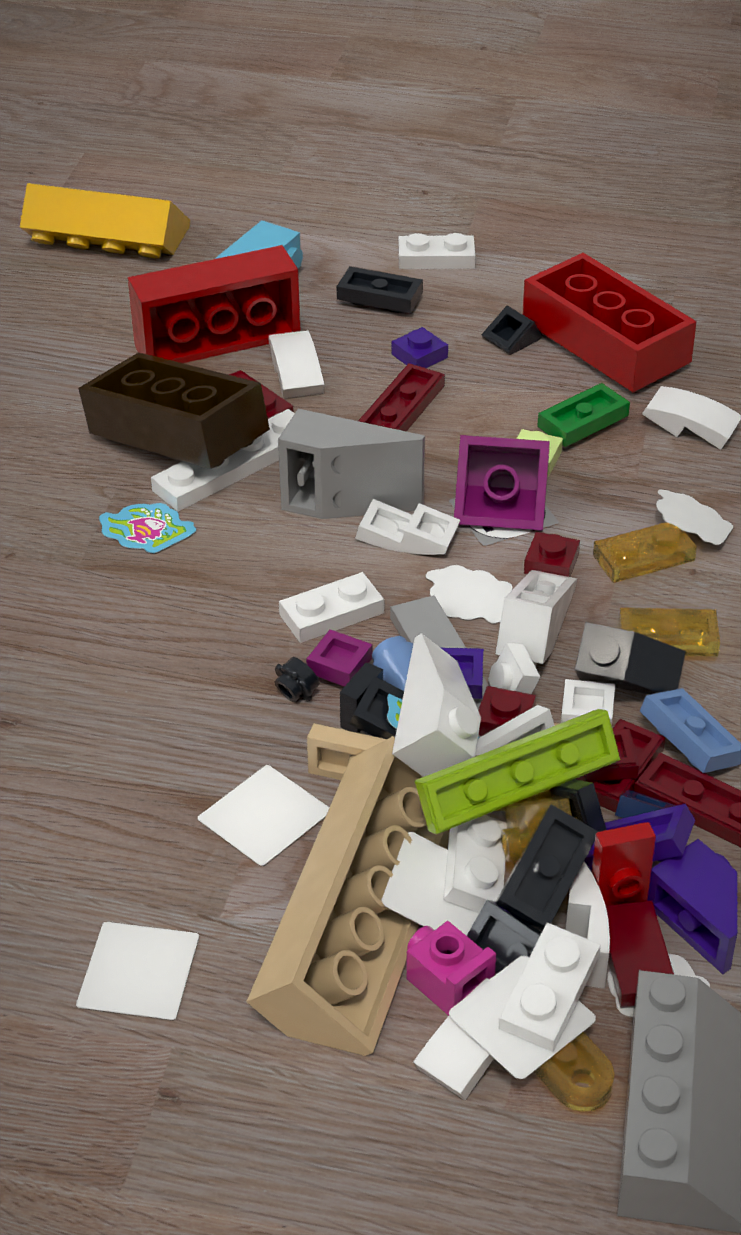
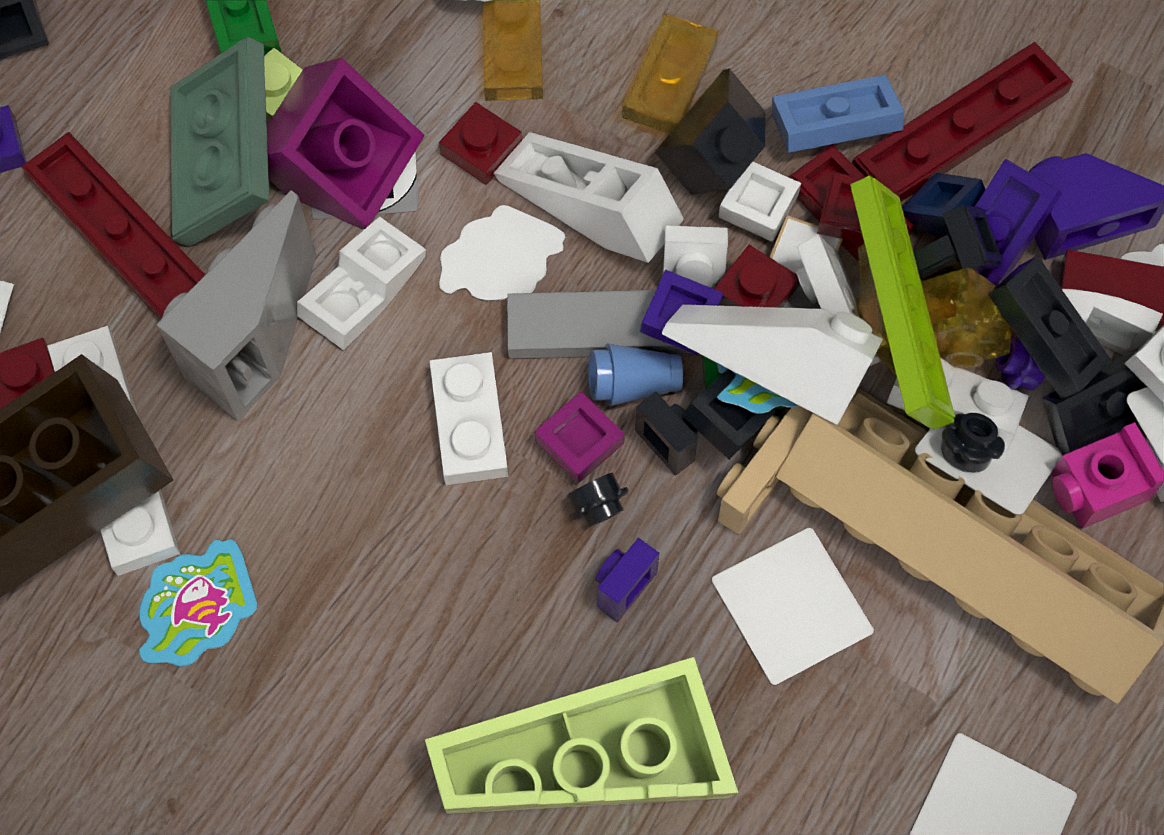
camera: 70 degrees left, 25 degrees up
(110, 716) = (597, 747): none -> yellowish green wedge
(238, 706) = (625, 578): none -> dark purple plate
(431, 860) = (971, 442): none -> black plate
(481, 421) = (219, 143): none -> sand green tile
(605, 804) = (973, 238): none -> black tile
(624, 863) = (1061, 243): red plate -> none

